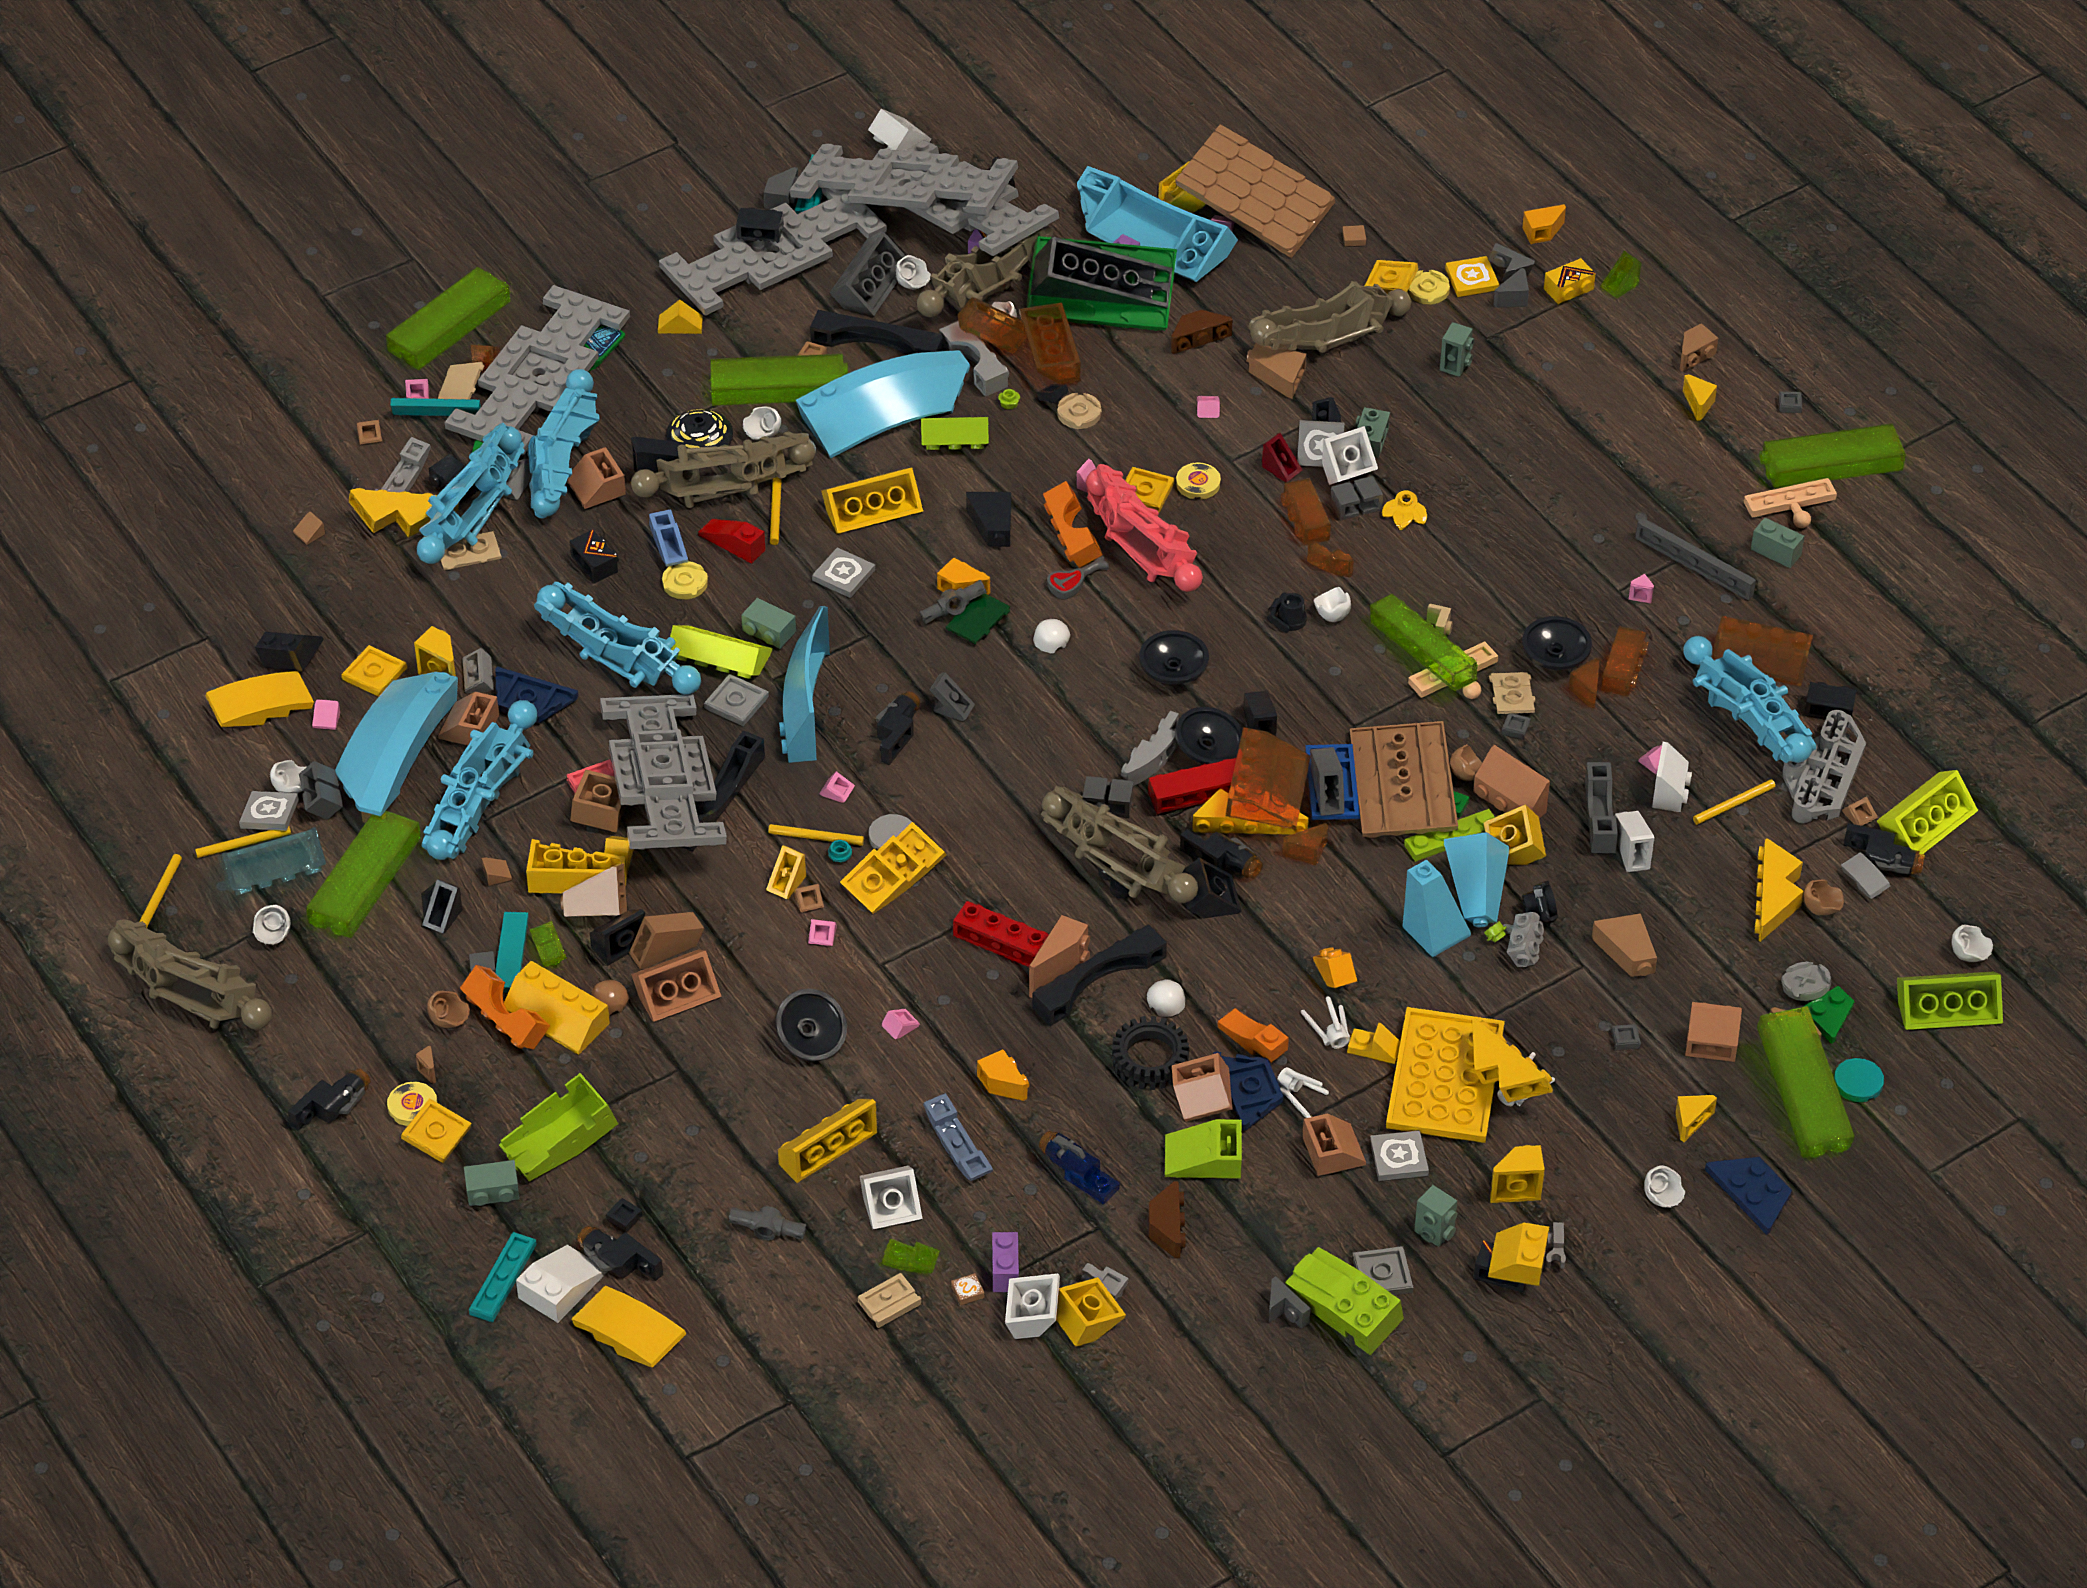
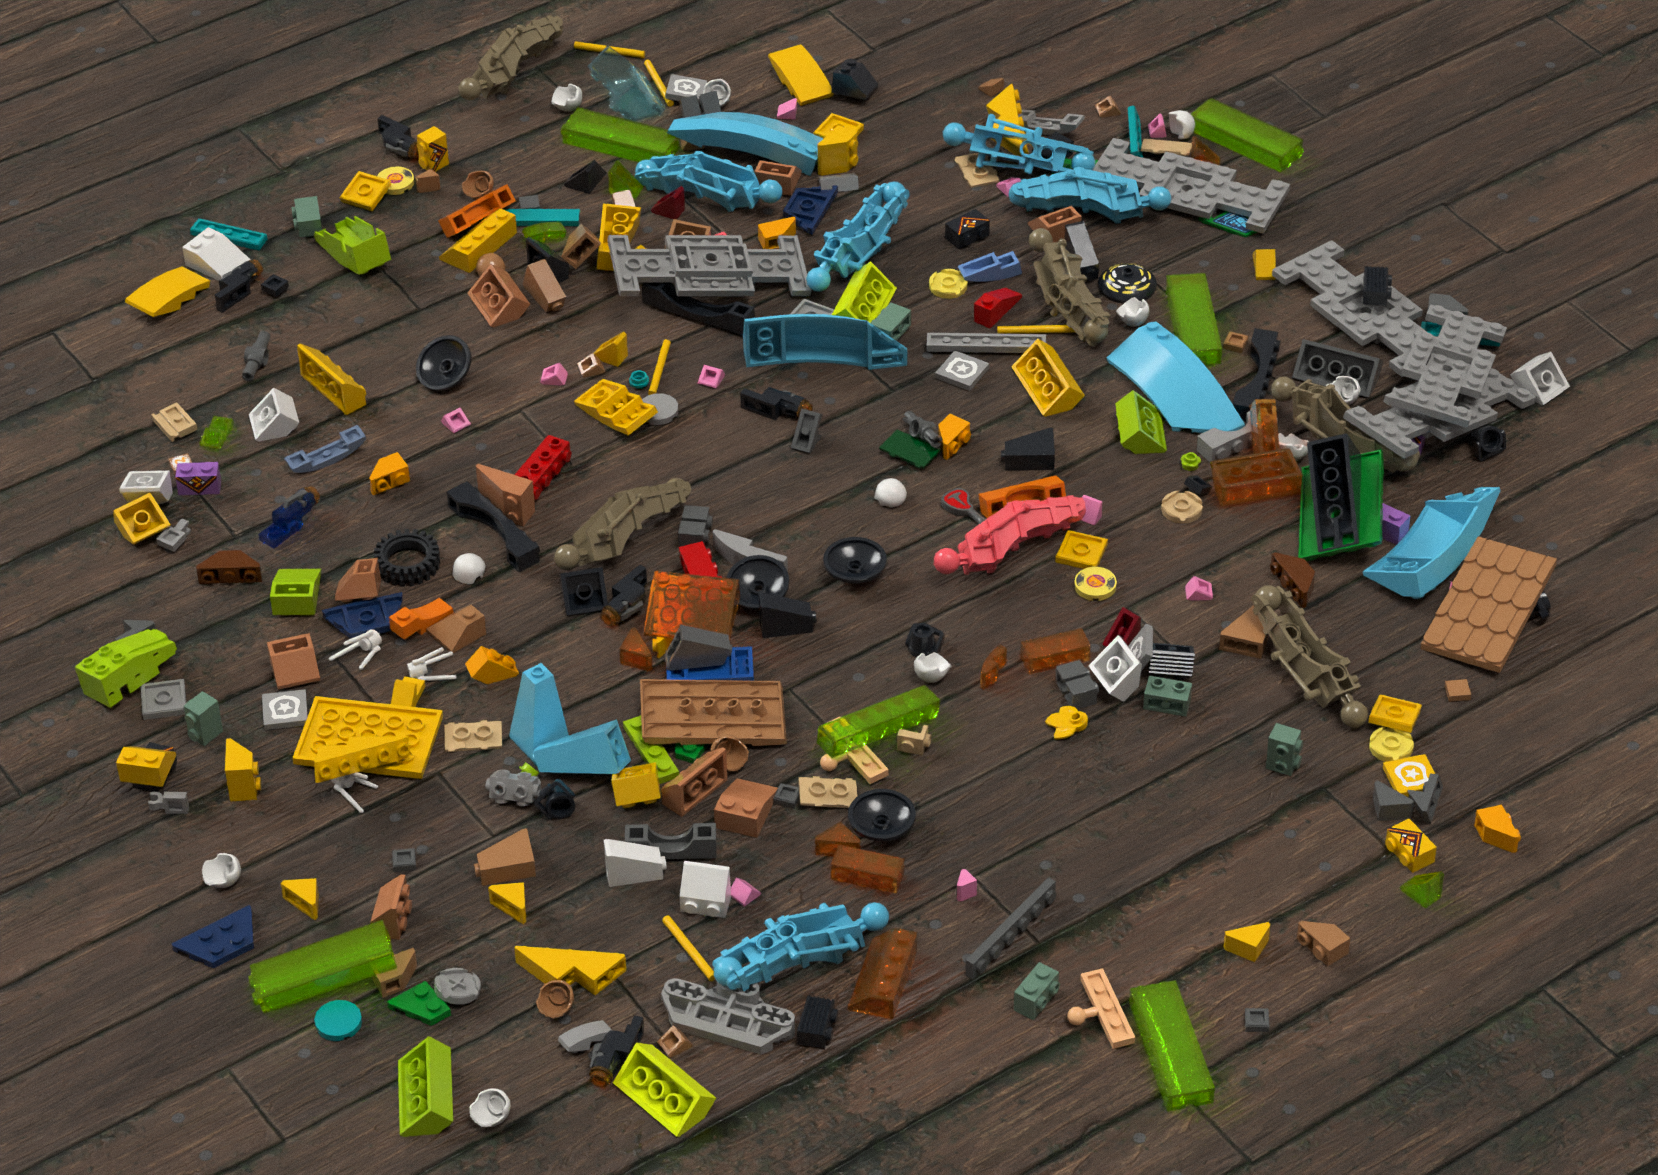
camera: 90 degrees right, 5 degrees down
(374, 1053) = (432, 149): none -> yellow brick
(426, 364) = (1181, 123): none -> white hair
(458, 870) = (621, 179): none -> clear neon green slope
(508, 521) = (1005, 185): none -> bright pink slope
(509, 822) = (670, 205): none -> dark red slope
(583, 724) = (769, 232): none -> light orange slope
(801, 549) = (981, 342): none -> light grey plate
(1267, 999) = (459, 628): none -> medium nougat slope
(1434, 986) = (473, 736): none -> tan piece
(1542, 750) = (744, 807): none -> nougat slope
(1686, 937) = (509, 899): none -> yellow slope

